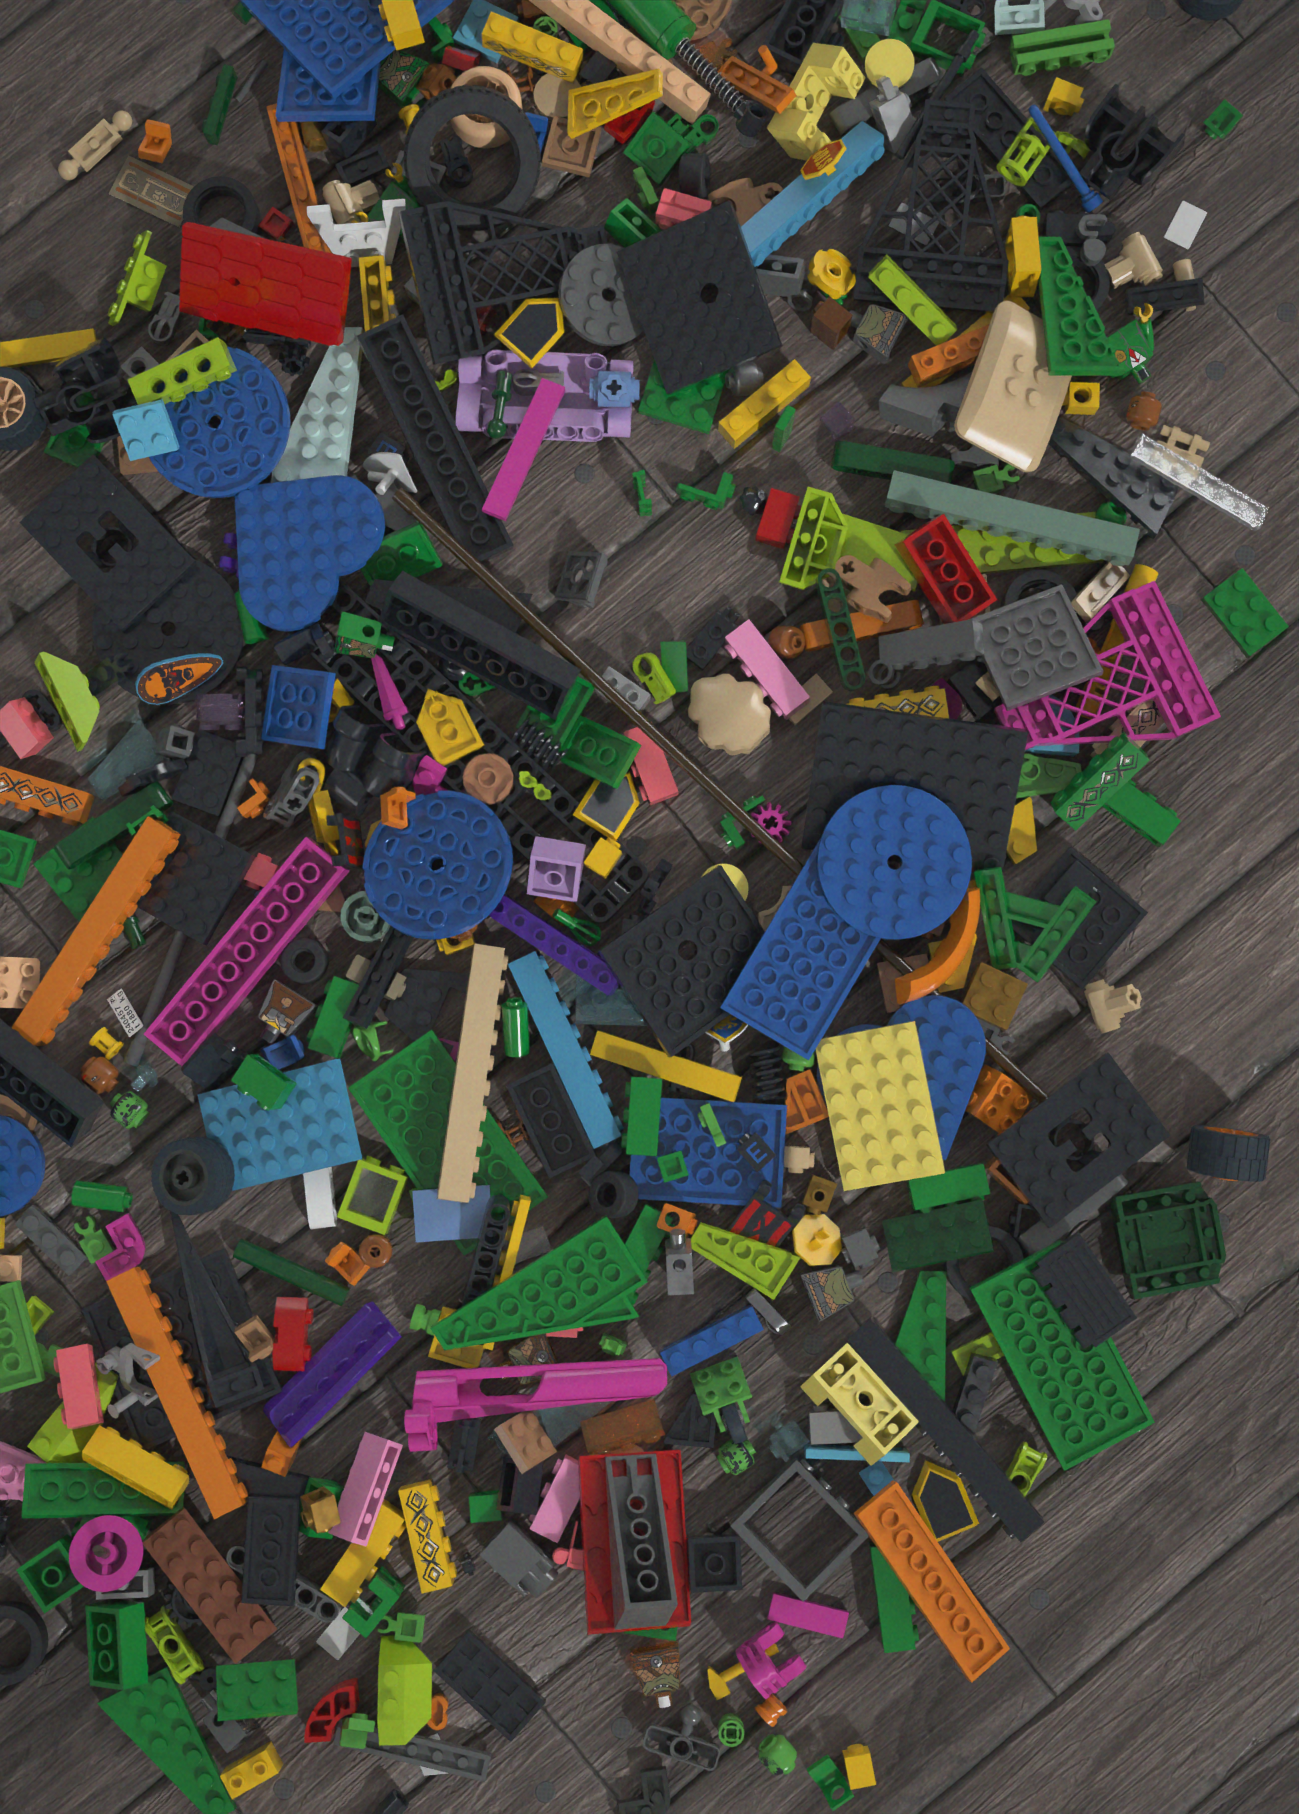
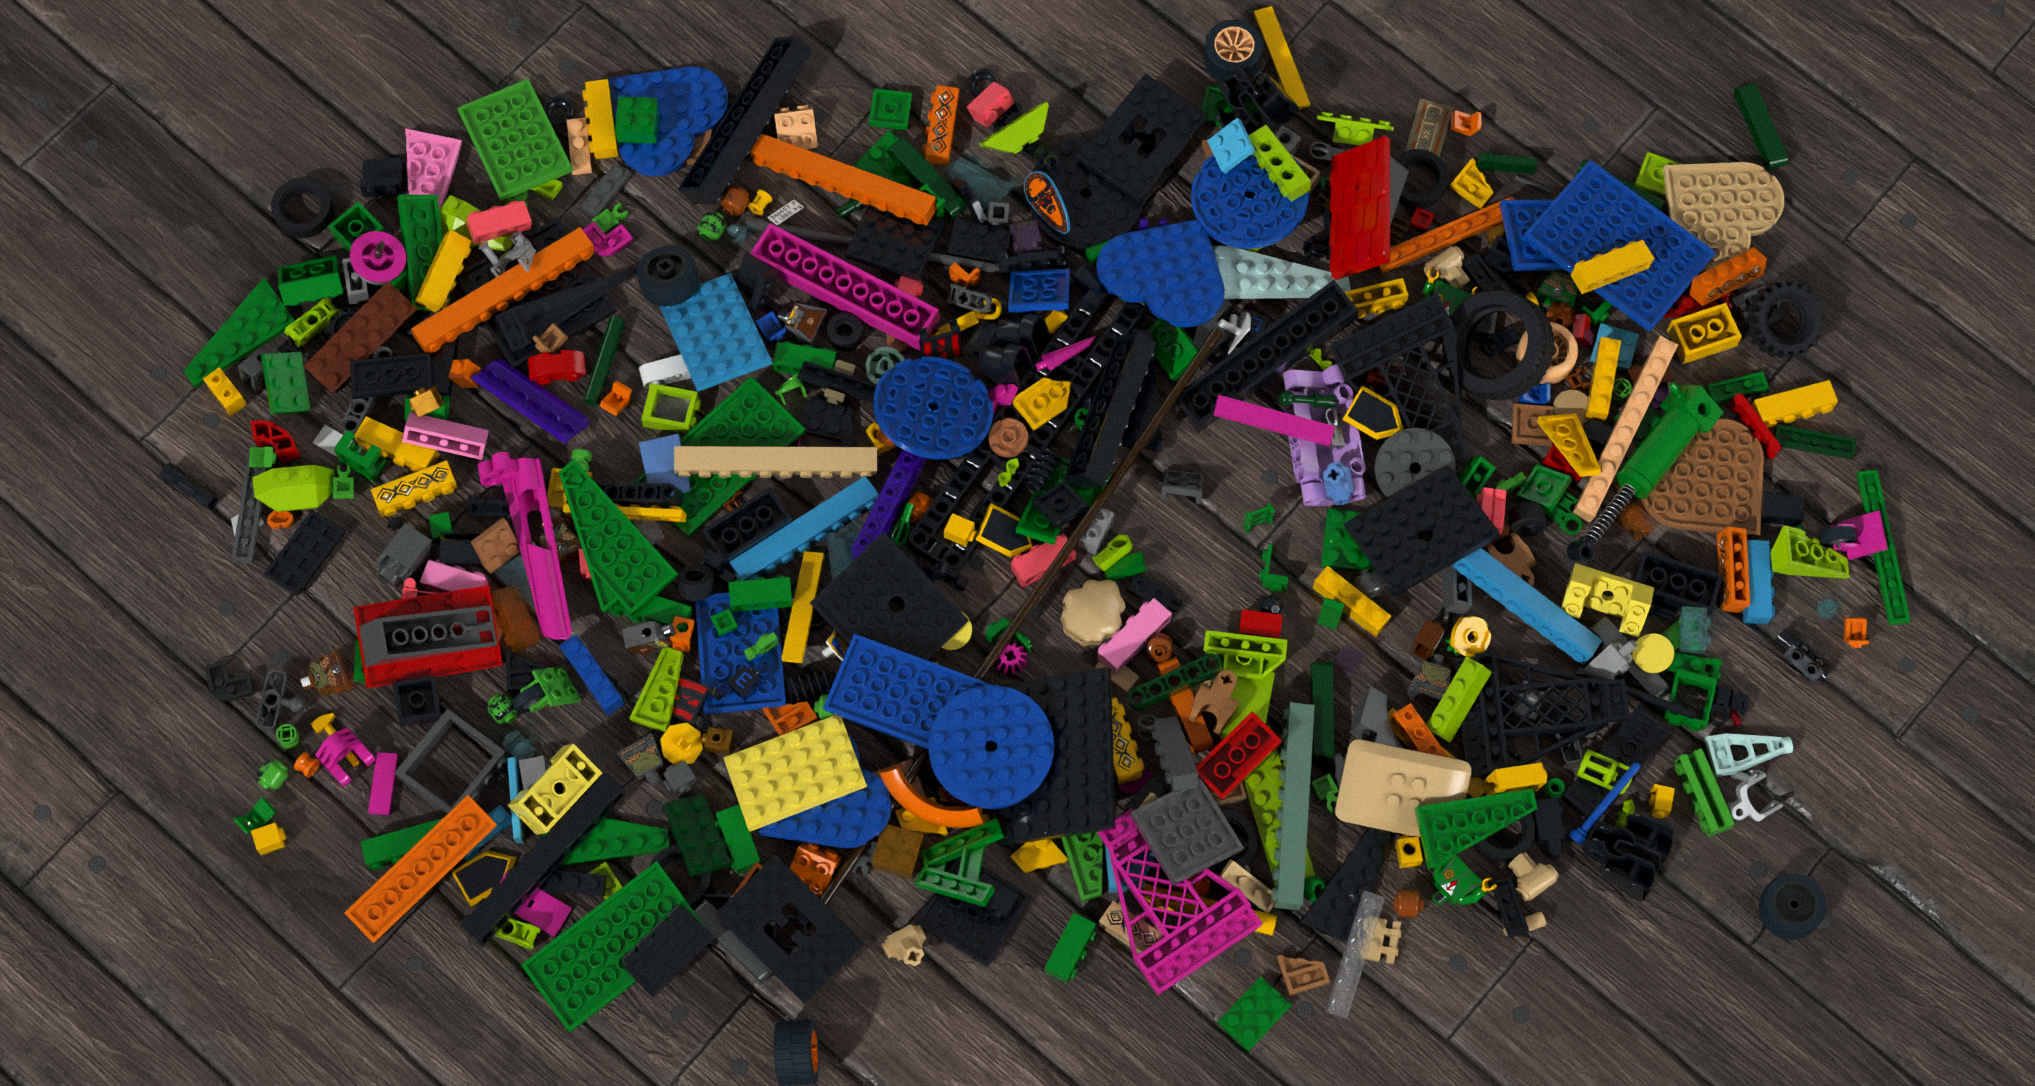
camera: 75 degrees right, 15 degrees down
(95, 145) = (1454, 81): tan plate -> none
(101, 1196) = (643, 217): green brick -> none
(241, 152) = (1472, 185): none -> yellow wing
(263, 1082) = (745, 311): green brick -> none
(361, 238) = (1416, 273): white wing -> none
(361, 636) = (1101, 324): green torso -> none
(382, 1243) = (628, 416): dark orange head -> none
(395, 807) = (972, 370): orange bracket -> none
(515, 1027) = (816, 490): green brick -> none
(555, 869) = (945, 495): lavender slope -> none
(588, 729) = (1060, 504): none -> black tile
(612, 1345) = (578, 601): bright green plate -> none
(758, 83) = (1613, 550): orange plate -> none
(768, 1312) = (616, 719): flat silver piece -> none
(798, 1158) = (744, 720): tan plate -> none
(823, 160) = (1554, 607): piece -> none
(1001, 1432) = (545, 912): none -> dark pink piece
(1092, 249) = (1532, 834): dark grey leg -> none
(1099, 781) = (1088, 905): green brick -> none
(1168, 1239) = (720, 1022): dark green wedge -> none
(1185, 224) = (1577, 919): white sticker -> none
(1208, 549) = (1302, 974): none -> medium nougat wing
(1222, 120) = (1671, 933): green bracket -> none

